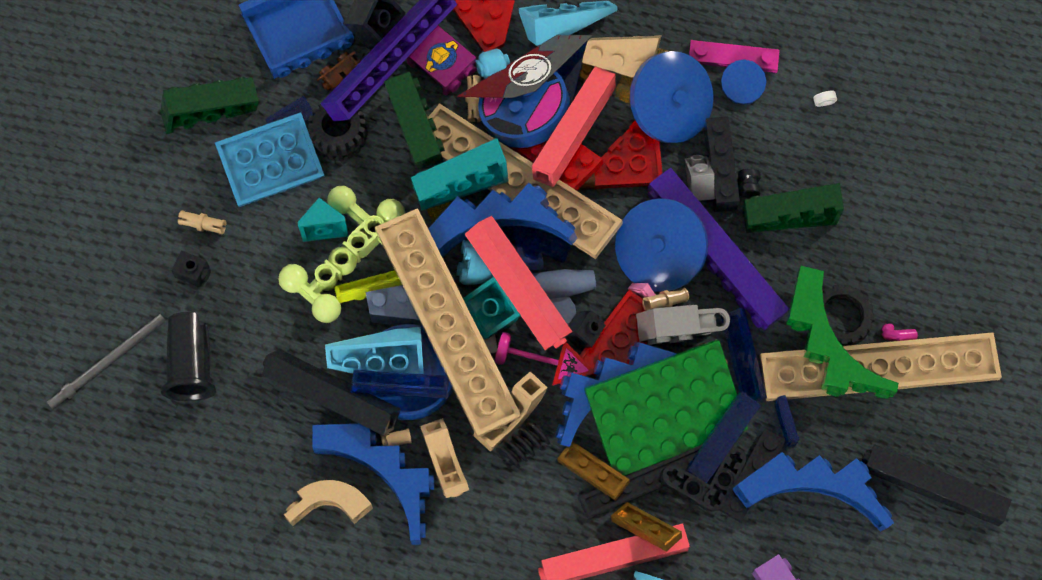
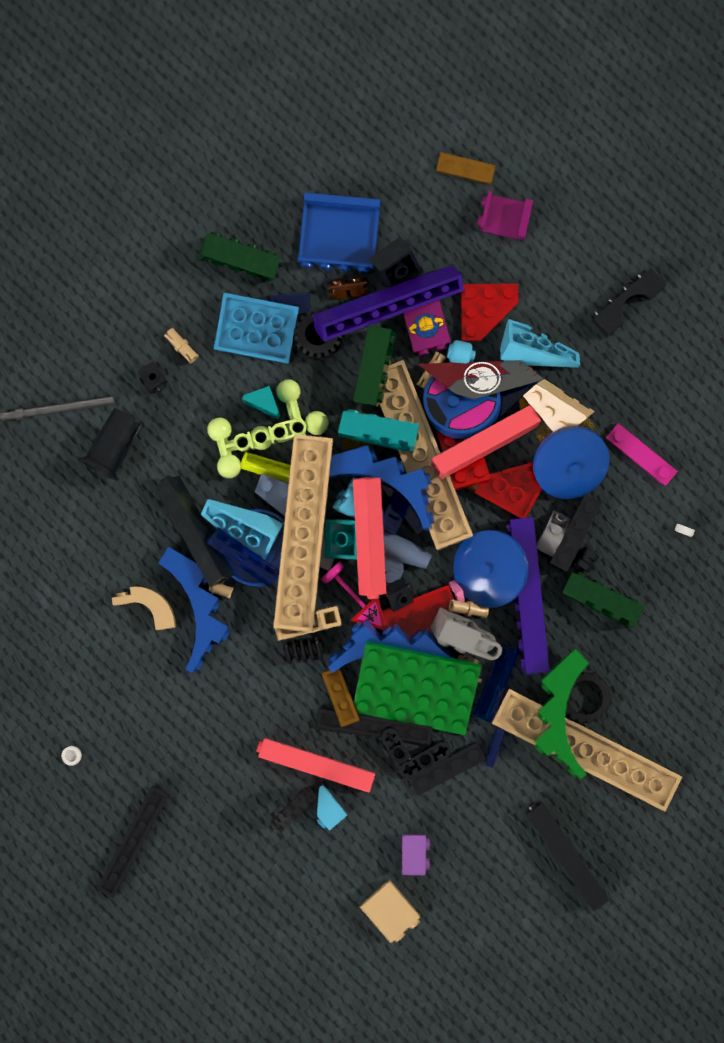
camera: 35 degrees right, 15 degrees up
(444, 459) = (243, 627): tan arch -> none
(646, 526) = (349, 760): pearl gold tile -> none
(723, 437) = (442, 732): clear blue plate -> none
(743, 82) = (634, 480): blue tile -> none
(817, 476) = (461, 783): blue arch -> none
(898, 335) = (616, 737): dark pink arm -> none

